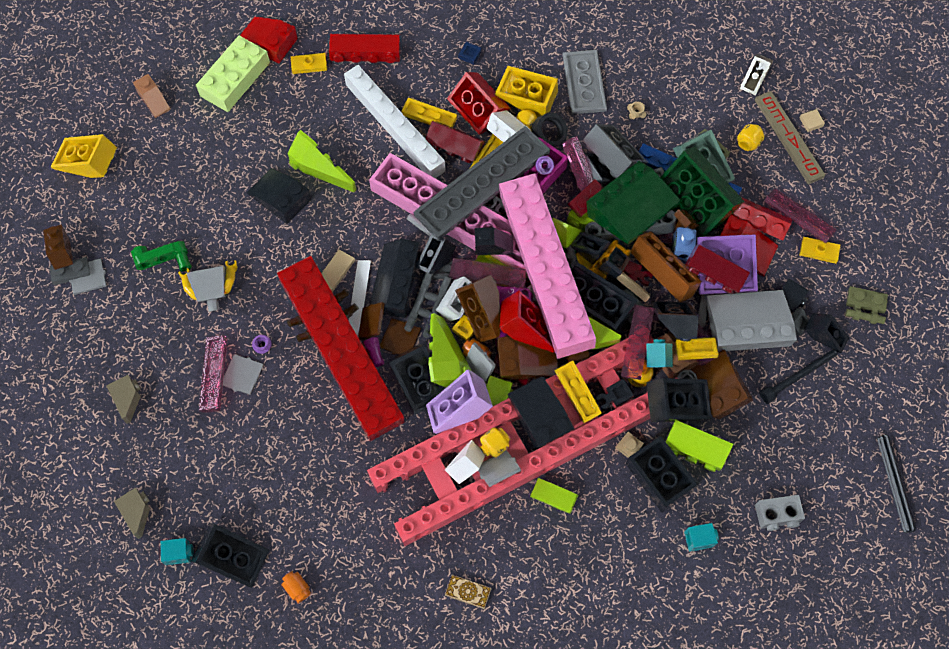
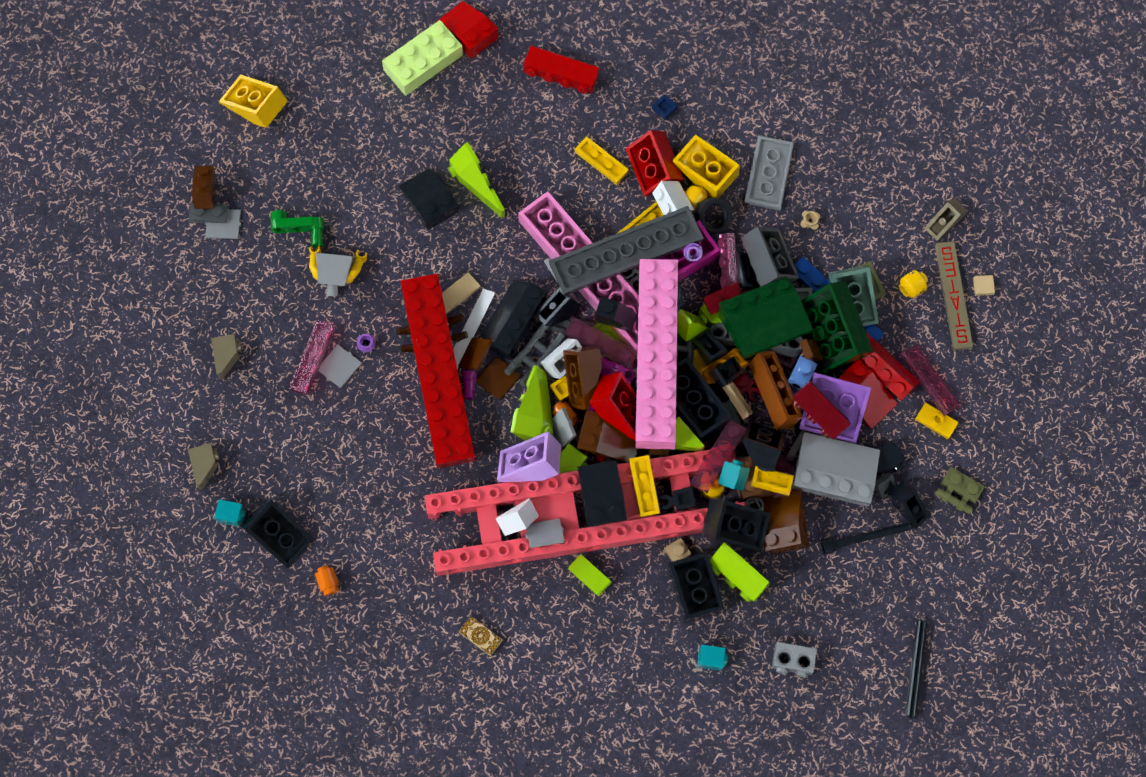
camera: 15 degrees right, 5 degrees up
(151, 95) = (336, 57): nougat slope -> none
(308, 63) = (500, 68): yellow plate -> none
(394, 122) = (564, 158): white brick -> none
(414, 377) = (496, 419): black slope -> none
(454, 141) = (615, 197): dark red brick -> none
(494, 442) = (550, 508): yellow head -> none

